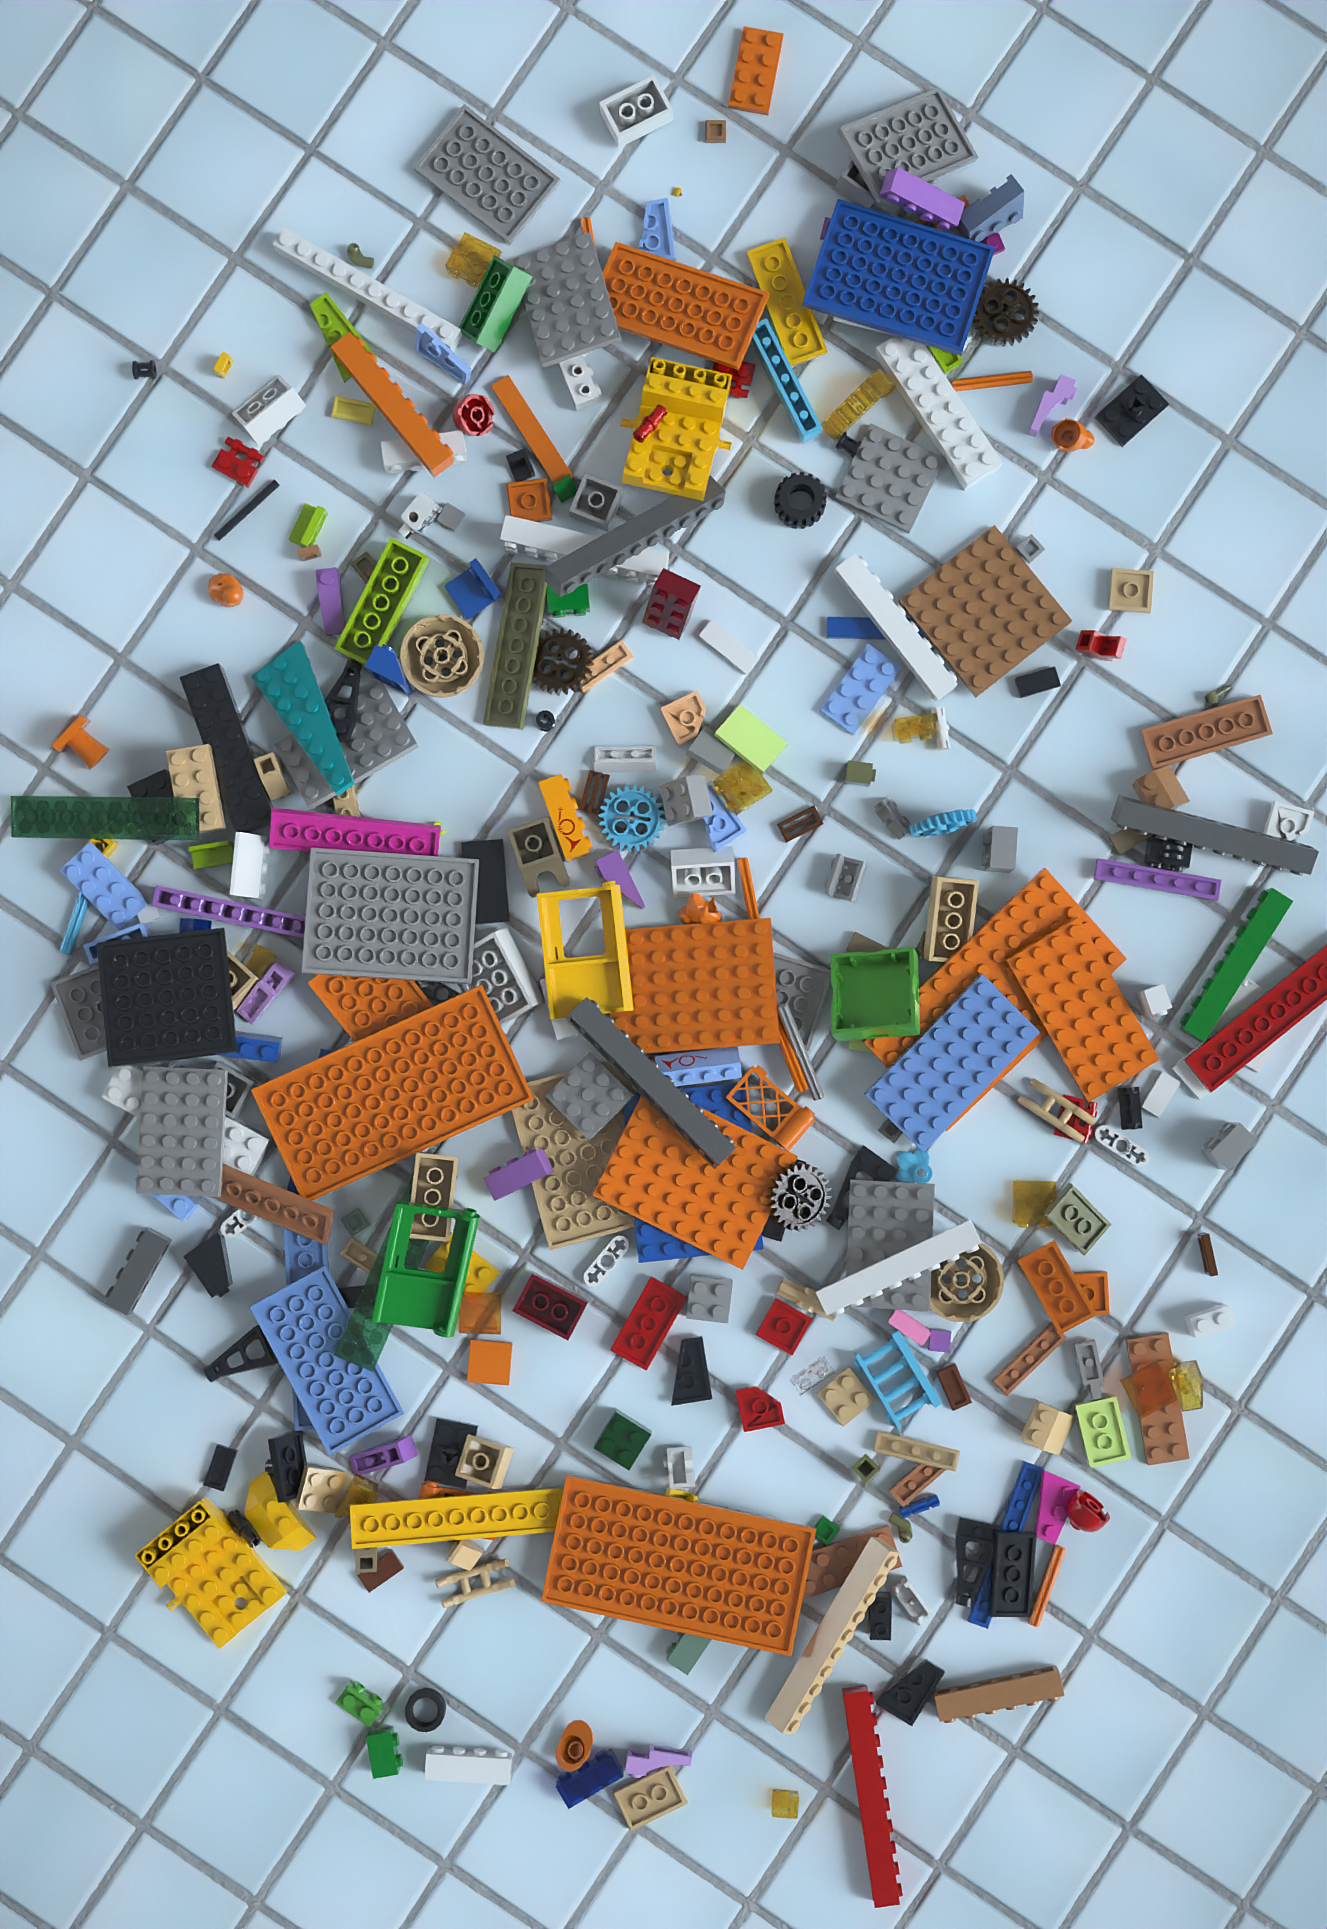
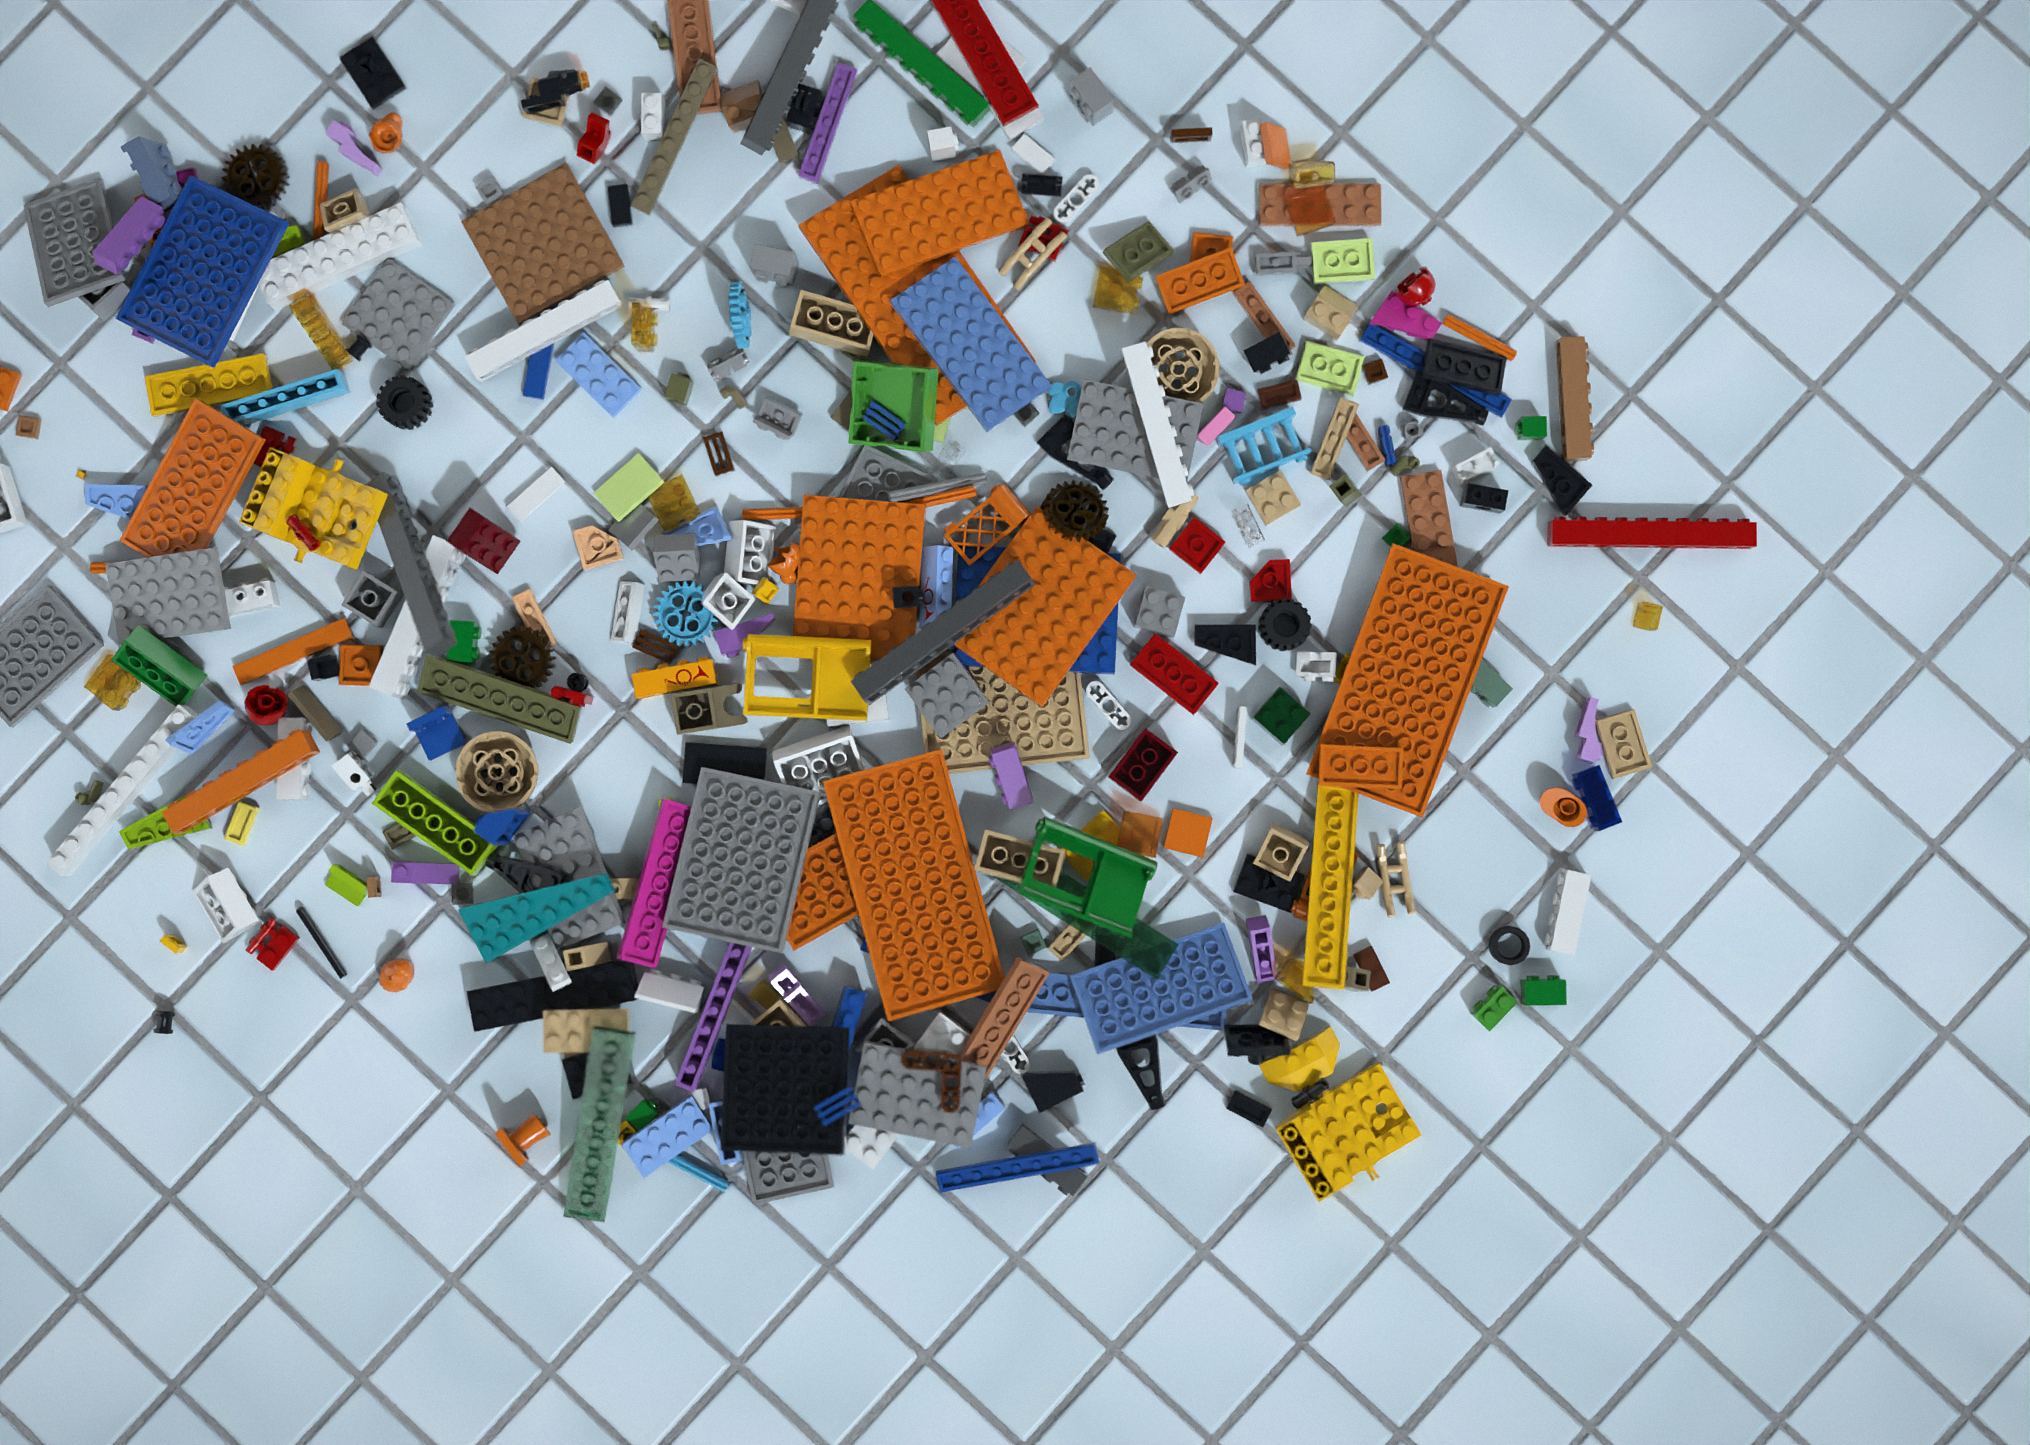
camera: 80 degrees left, 0 degrees up
(124, 858) = (643, 1114): none -> green brick
(125, 1243) = (1017, 1167): none -> blue tile
(144, 1039) = (821, 1114): none -> blue tile
(208, 1159) = (947, 1071): none -> reddish brown beam
(212, 854) = (654, 1027): lime panel -> none
(260, 741) = (550, 962): none -> white plate
(316, 641) = (462, 893): none -> clear smoke plate
(474, 465) = (315, 713): none -> dark tan tile
(529, 723) = (575, 697): none -> red plate
(564, 488) = (353, 628): green tile -> none
(581, 1530) = (1360, 766): none -> orange plate
(594, 1400) = (1239, 737): none -> white tile
(650, 857) = (727, 600): none -> white slope
(668, 894) = (765, 590): none -> yellow tile
(675, 1033) = (898, 599): none -> black brick
(723, 1446) = (1302, 624): none -> black tyre
(829, 1056) = (946, 460): none -> clear hinge
(832, 1635) = (1496, 545): tan brick -> none
(845, 998) = (870, 411): none -> blue tile
(862, 832) = (735, 394): none -> dark tan arm
(938, 1535) = (1417, 431): none -> light grey plate
(960, 1654) = (1531, 428): none -> green brick
(984, 406) = (343, 210): none -> tan slope
(989, 1434) = (1329, 368): none -> yellowish green tile
(993, 1482) = (1375, 371): none -> reddish brown tile
(994, 1369) = (1268, 352): none -> black brick
(1116, 726) = (674, 136): none -> dark tan plate
(1134, 701) = (652, 116): none -> white brick
(1142, 652) = (607, 101): none -> clear smoke plate
(1144, 596) = (554, 88): none -> black plate
(1150, 1256) = (1198, 178): none -> light grey hinge
(1210, 1343) = (1275, 145): none -> orange tile

